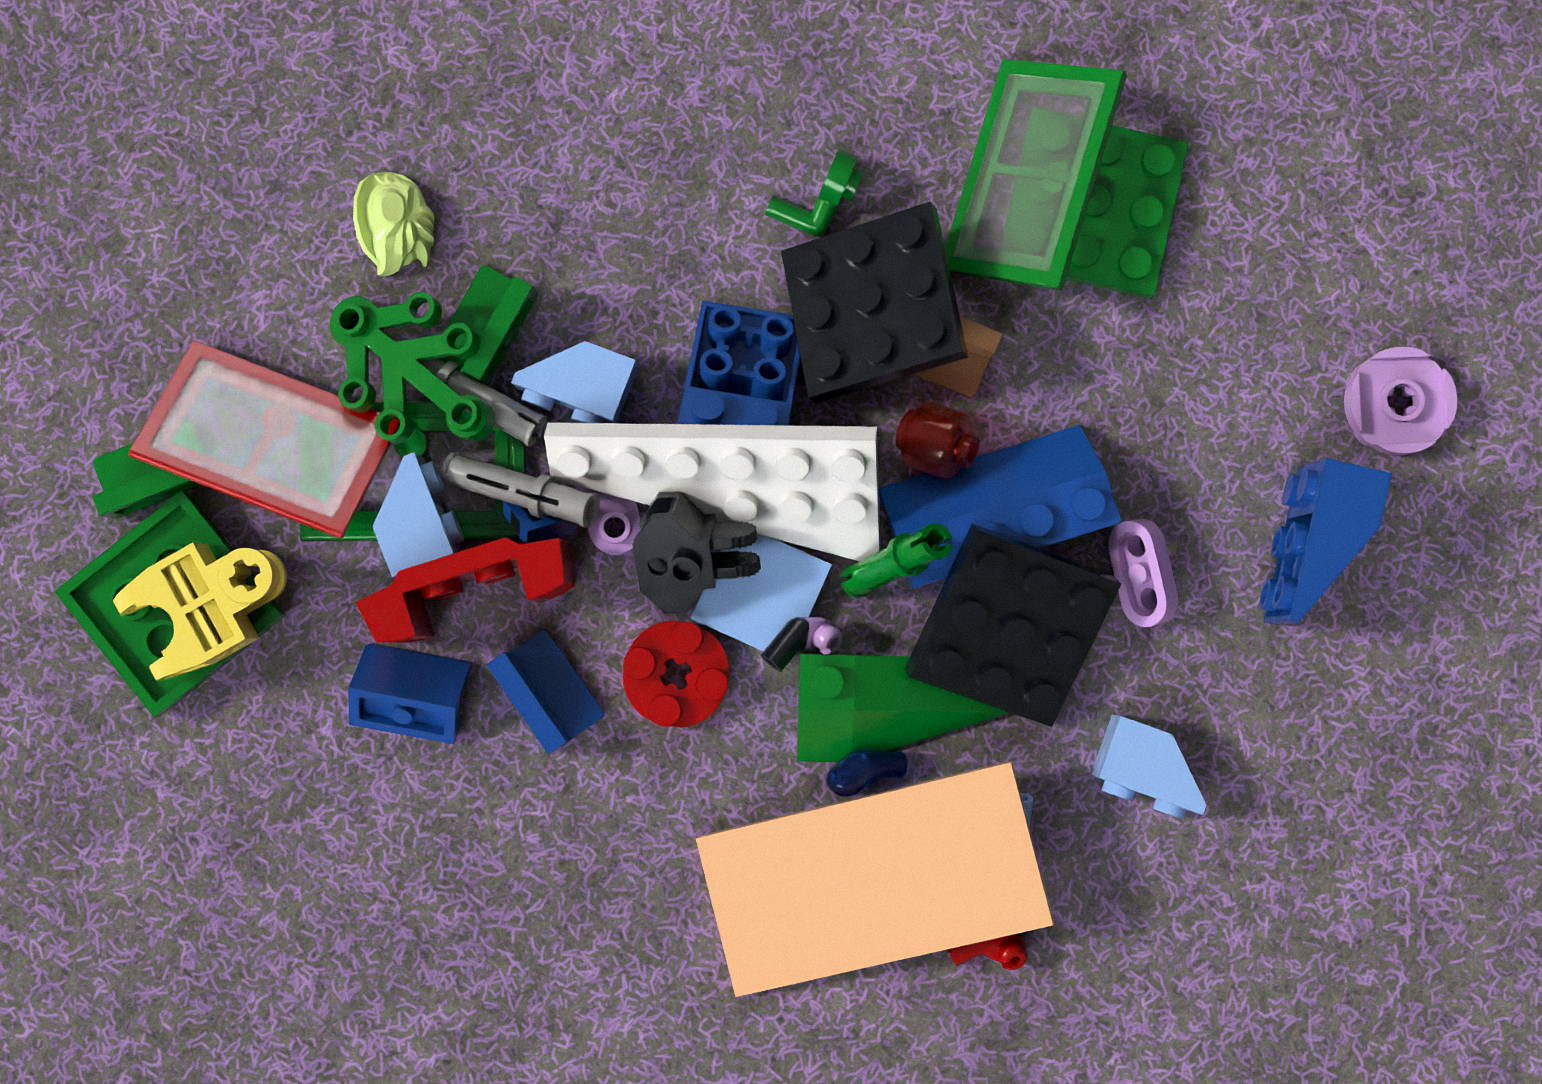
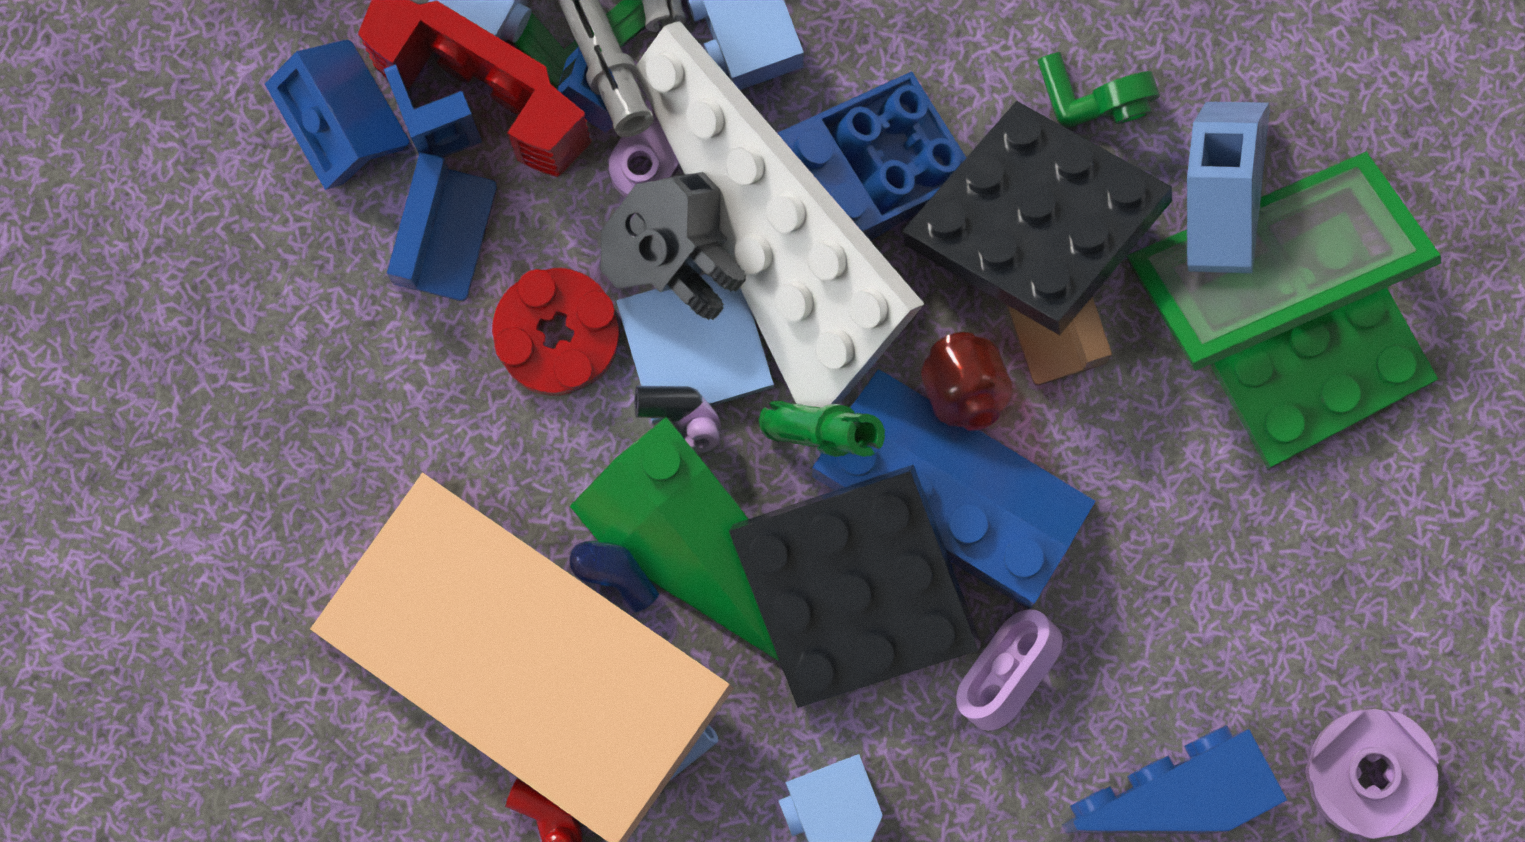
camera: 50 degrees right, 5 degrees down
(479, 641) = (439, 126): none -> blue panel
(955, 166) = (1225, 186): none -> medium blue slope

